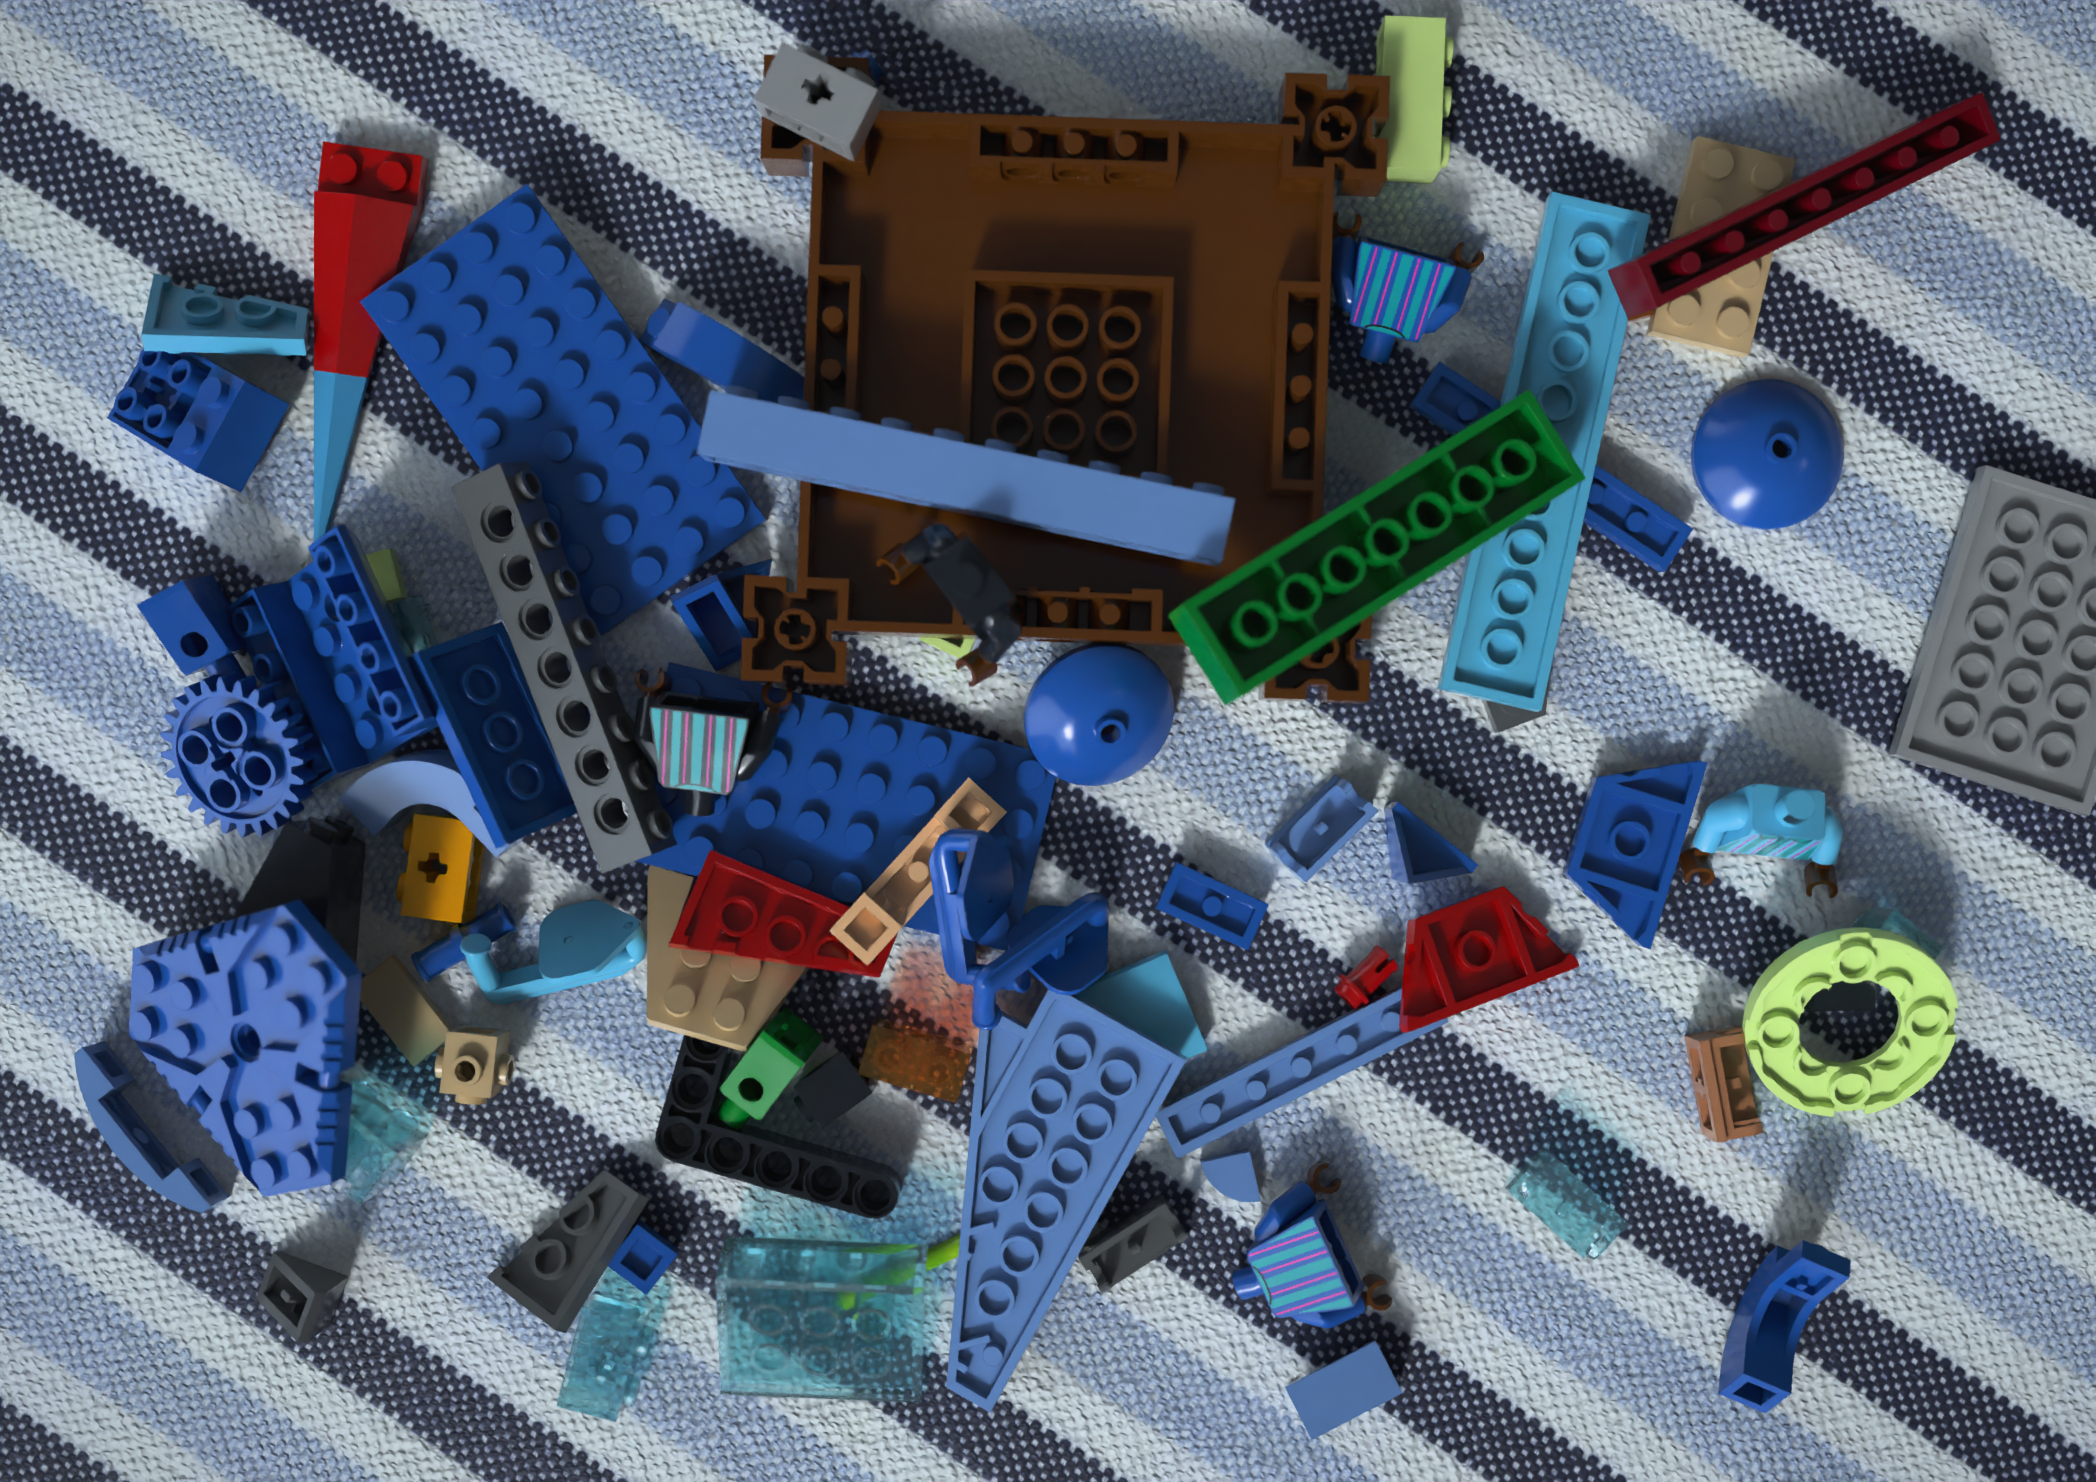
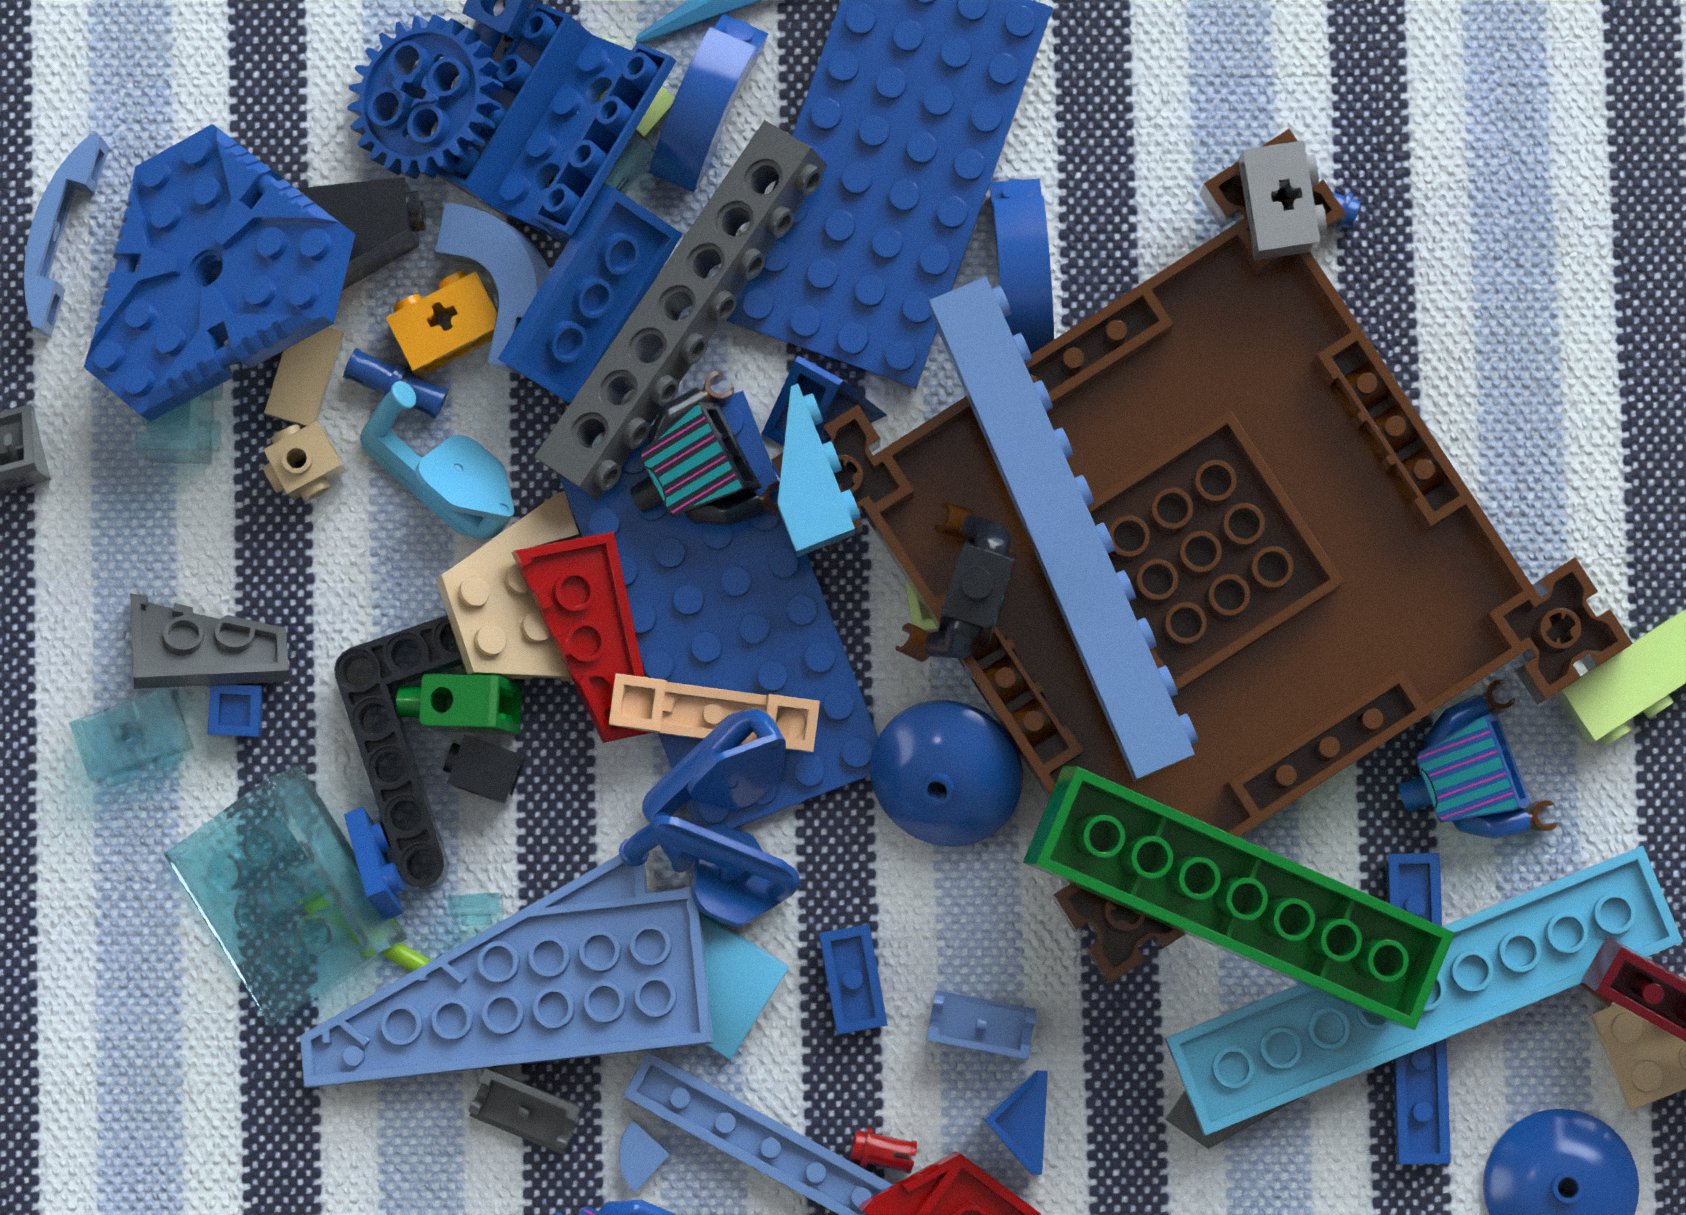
camera: 55 degrees right, 5 degrees down
(404, 526) = (705, 101): none -> blue arch
(788, 667) = (808, 492): none -> medium azure slope
(854, 1237) = (379, 877): none -> blue plate
(915, 1060) = (555, 821): clear orange brick -> none
(942, 1172) = (475, 908): none -> clear light blue plate

